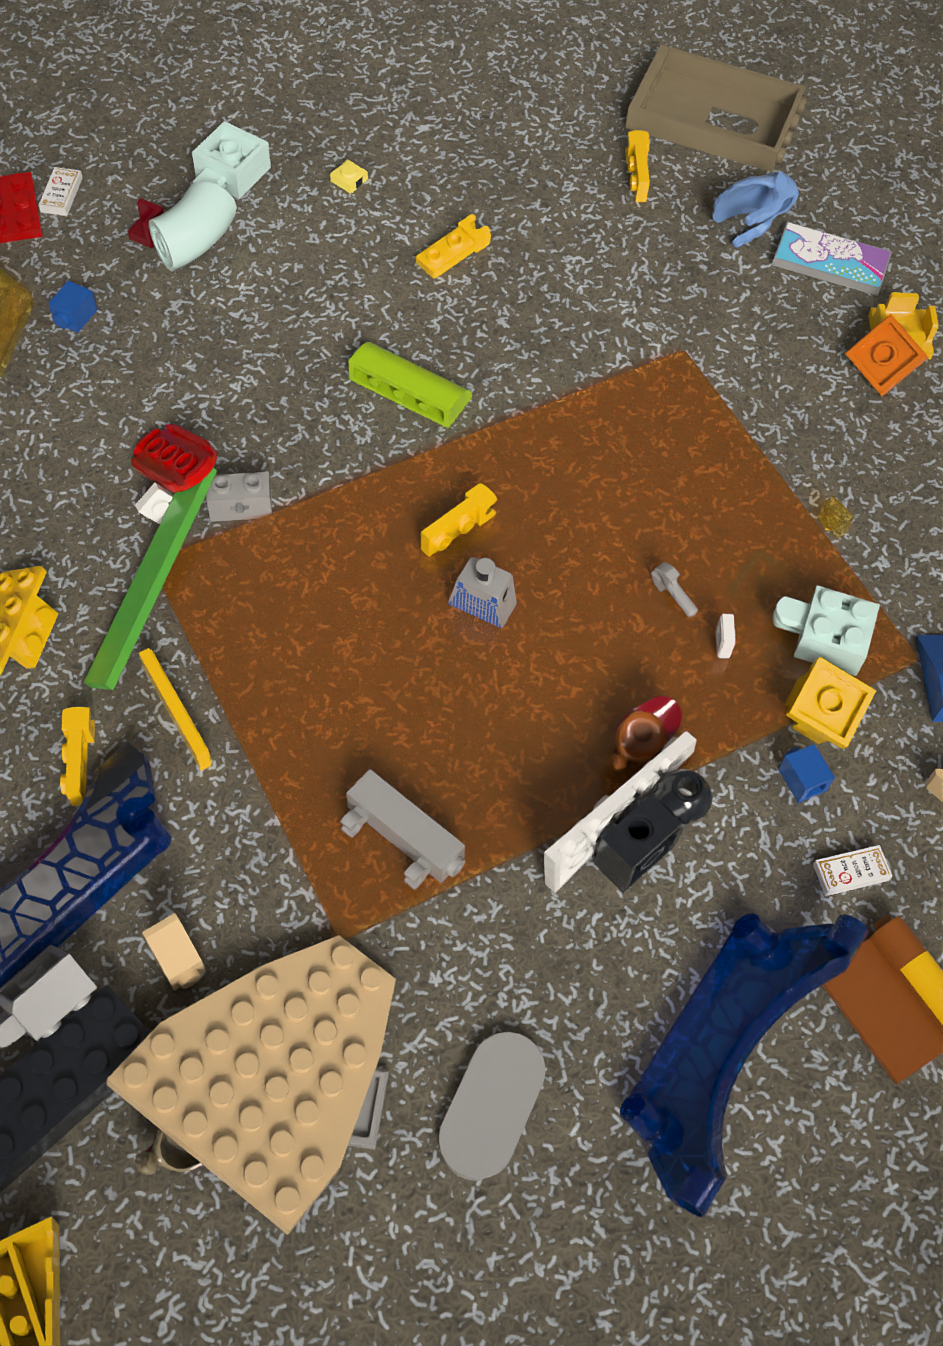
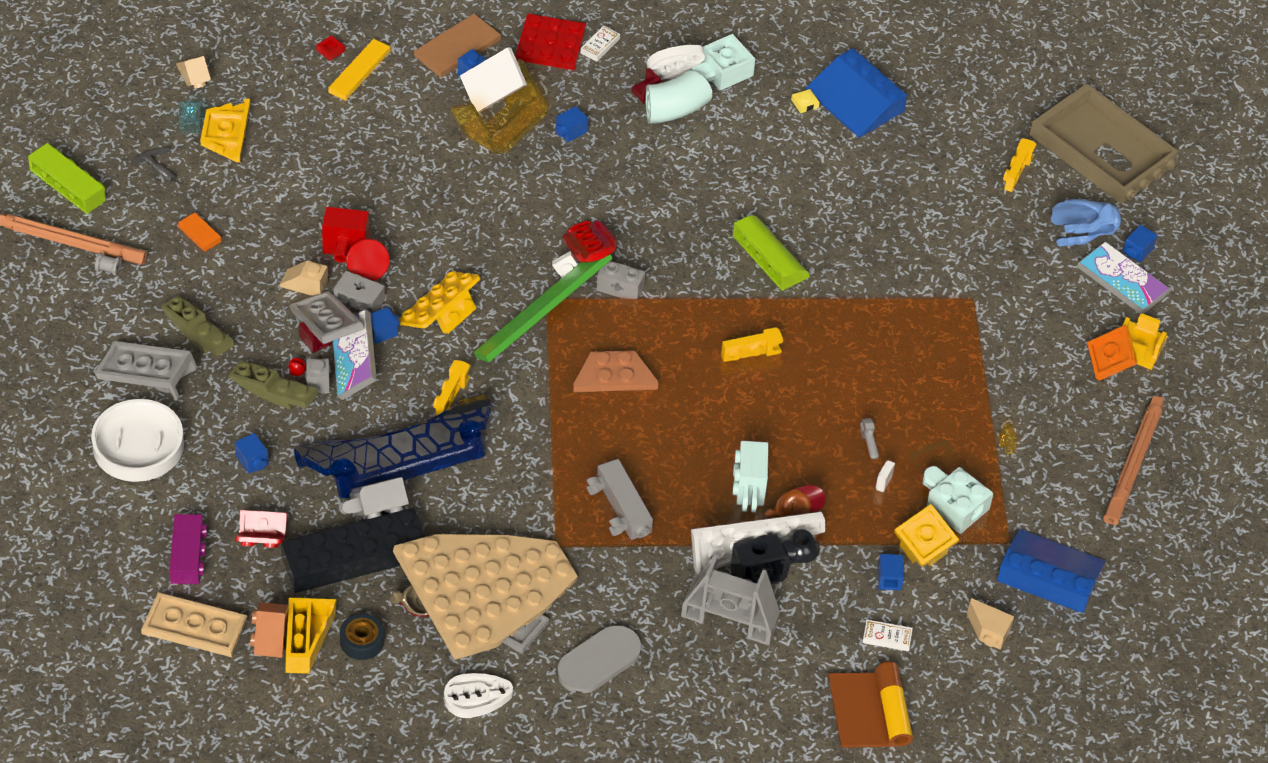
camera: 25 degrees right, 10 degrees down
(101, 1234) = (362, 647): none -> wheel
(169, 177) = (675, 60): none -> white piece
(174, 952) = (458, 508): tan slope -> none
(175, 709) = (521, 389): yellow tile -> none
(295, 633) = (614, 373): none -> nougat wing
(322, 1250) = (476, 706): none -> white piece
(408, 144) = (857, 93): none -> blue slope
(454, 247) = (852, 175): yellow plate -> none
(484, 591) = (744, 392): light grey torso -> none
(563, 715) = (750, 474): none -> light aqua brick
(637, 929) = (733, 599): none -> light grey wedge
(690, 1078) = (752, 676): clear blue panel -> none
(828, 209) = (1140, 243): none -> blue brick

